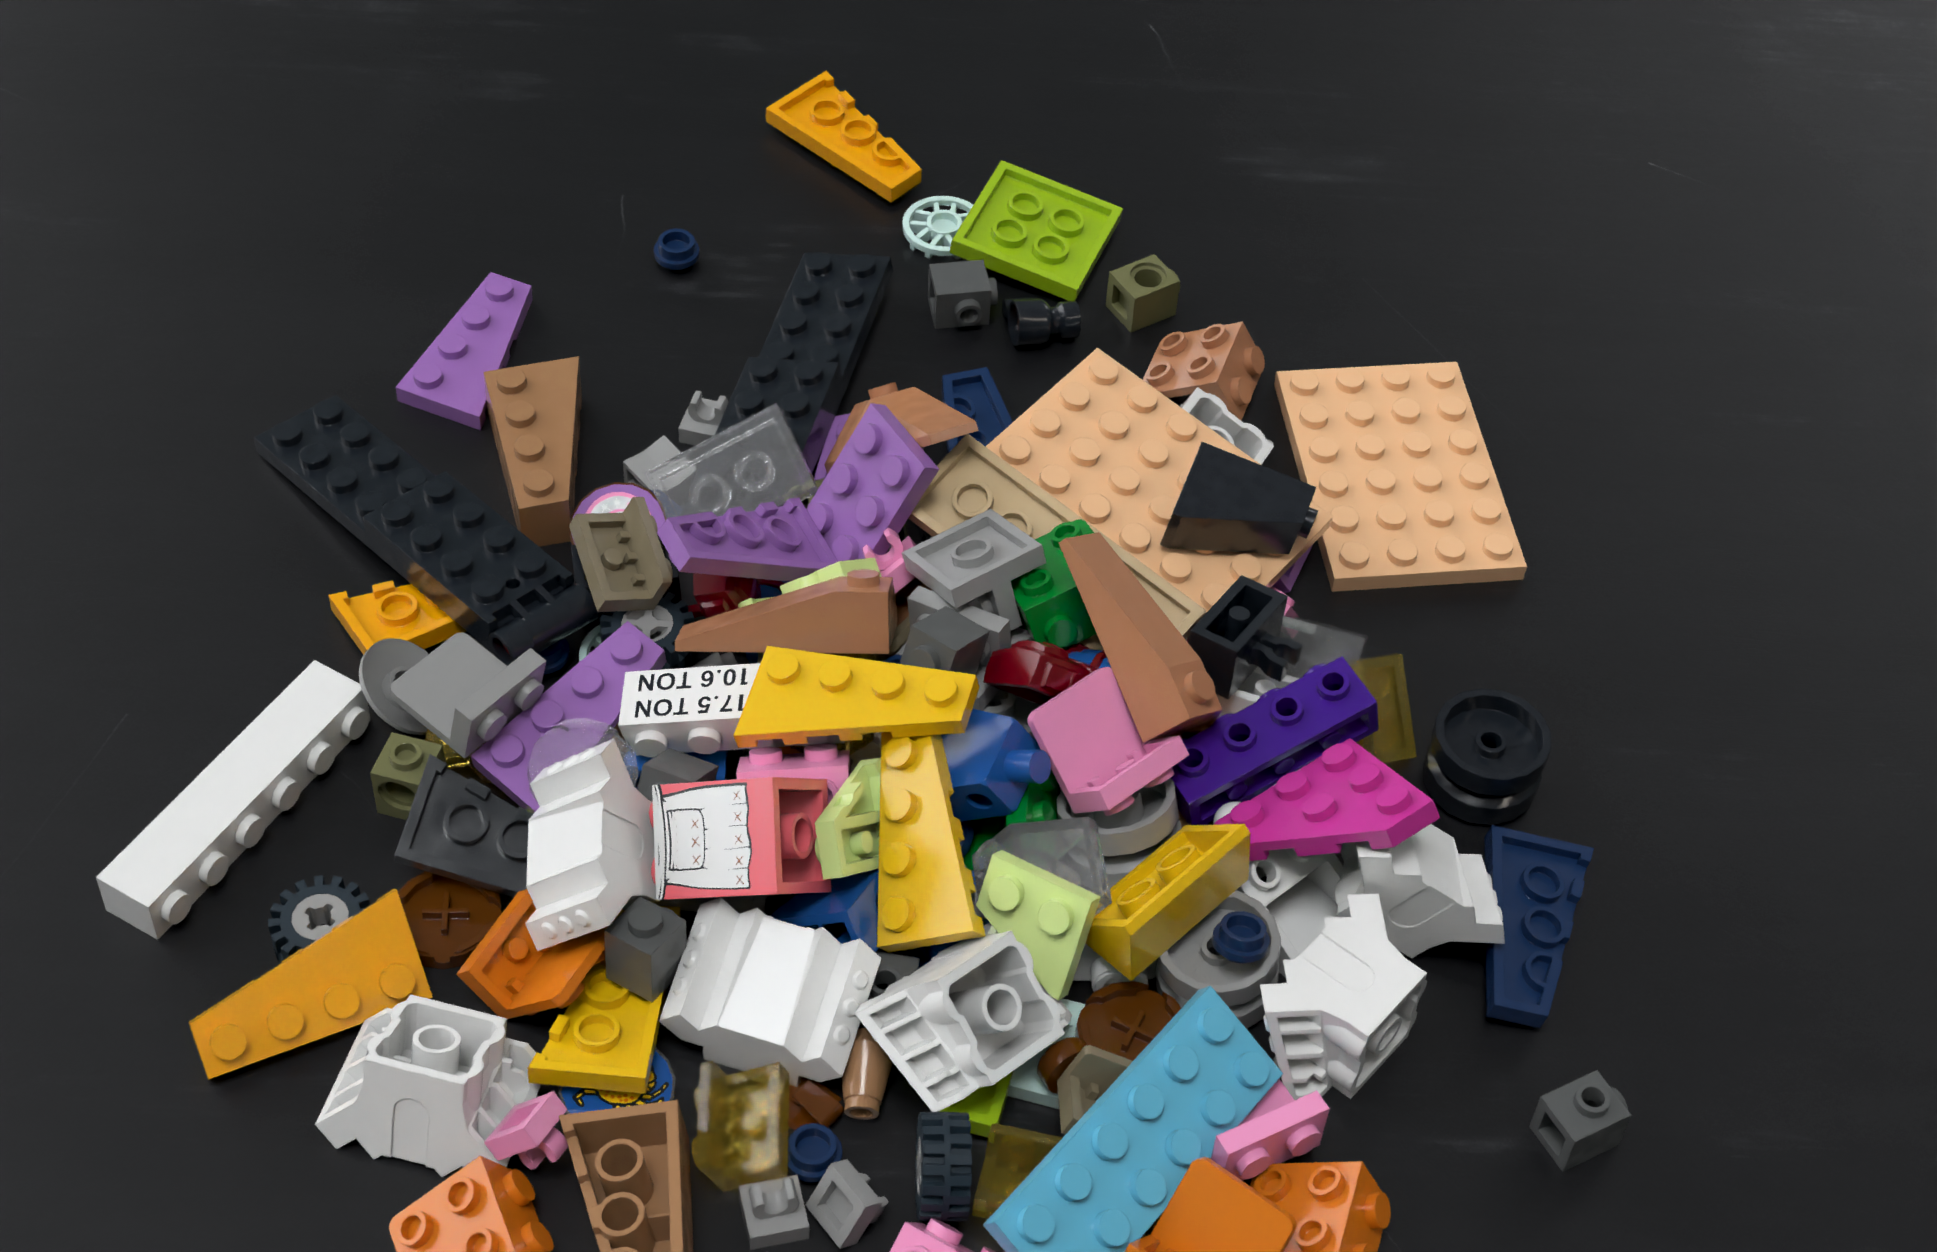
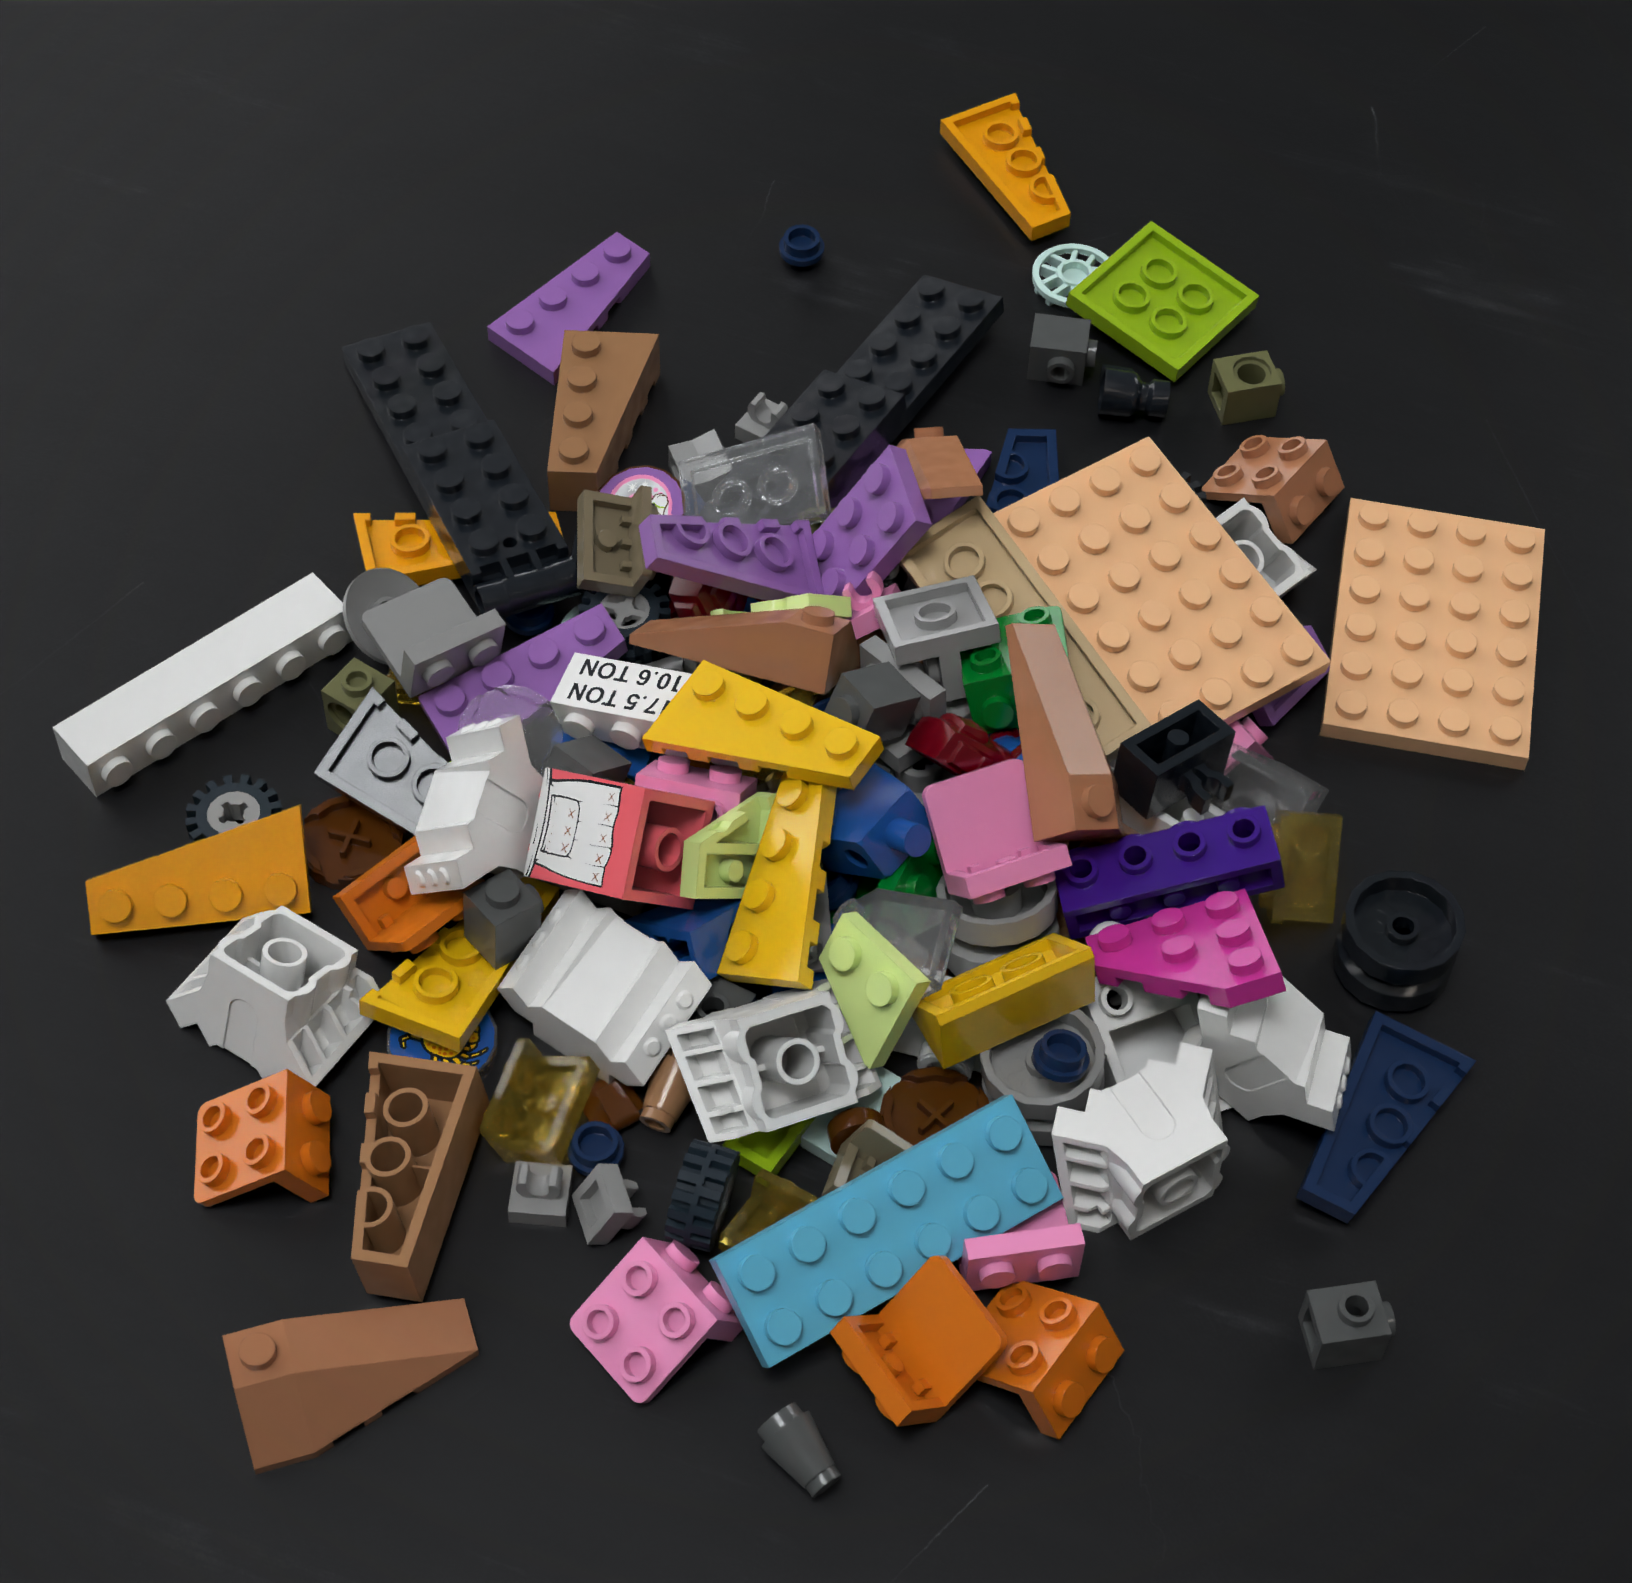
camera: 20 degrees right, 5 degrees up
(530, 1132) = (343, 1059): bright pink tile -> none
(1238, 507) = (1223, 629): black slope -> none

